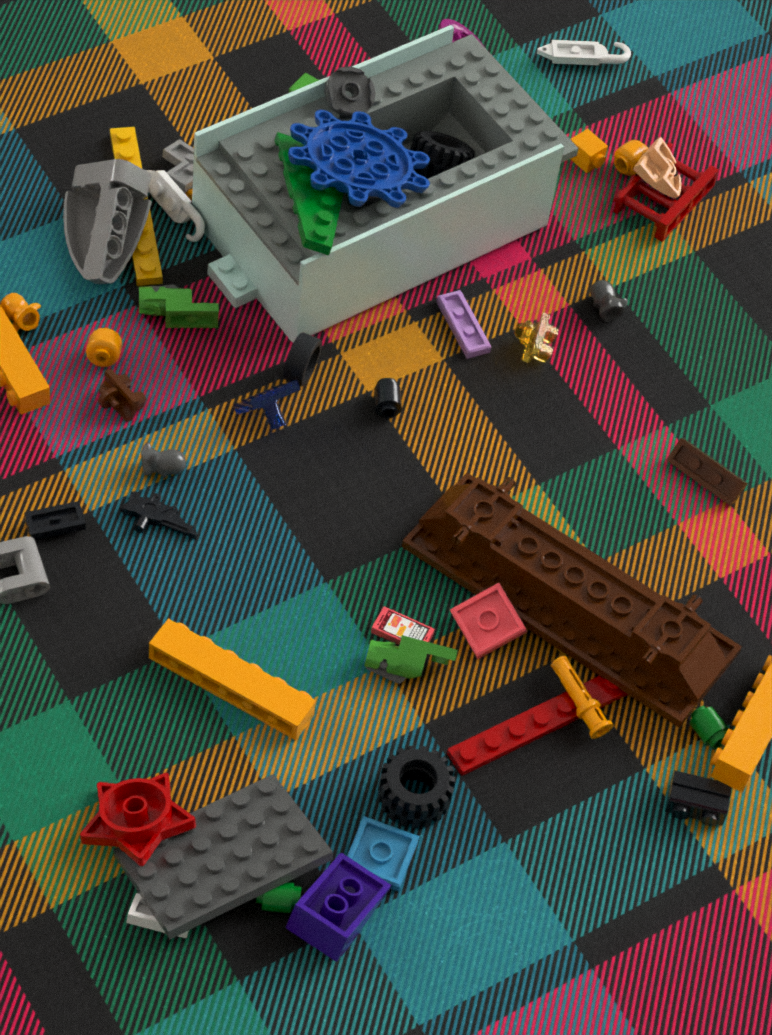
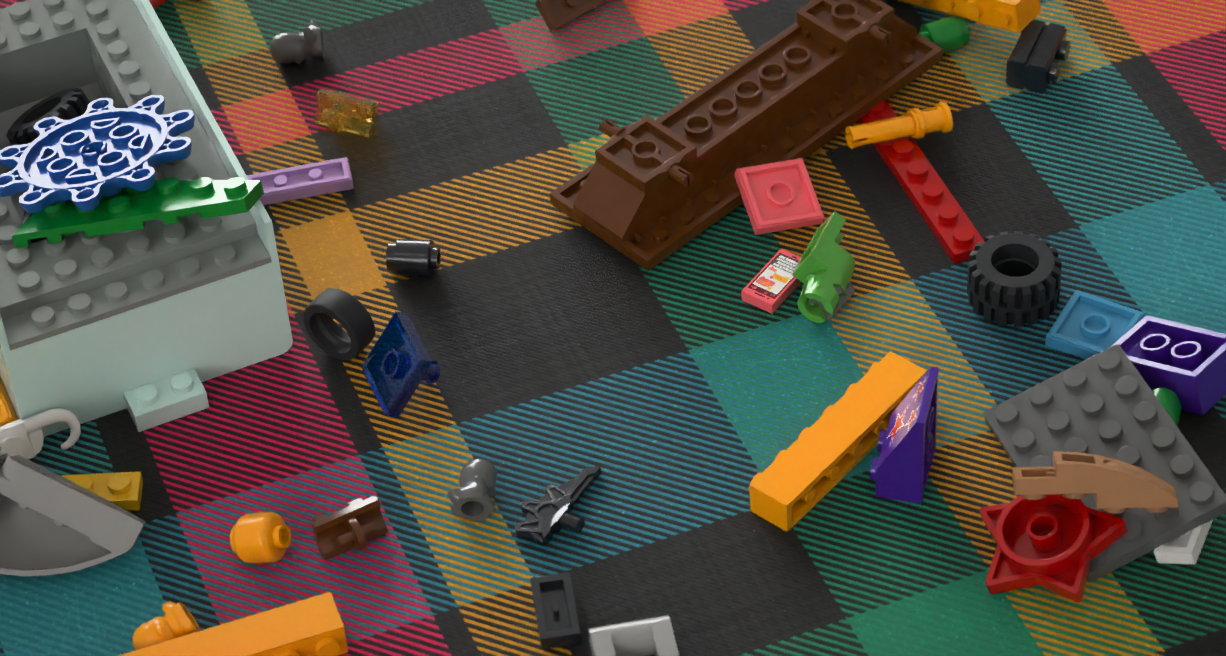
camera: 70 degrees left, 10 degrees down
(165, 835) = (1111, 481): none -> medium nougat slope
(177, 307) = (200, 459): bright green plate -> none
(215, 720) = (908, 444): none -> dark purple slope

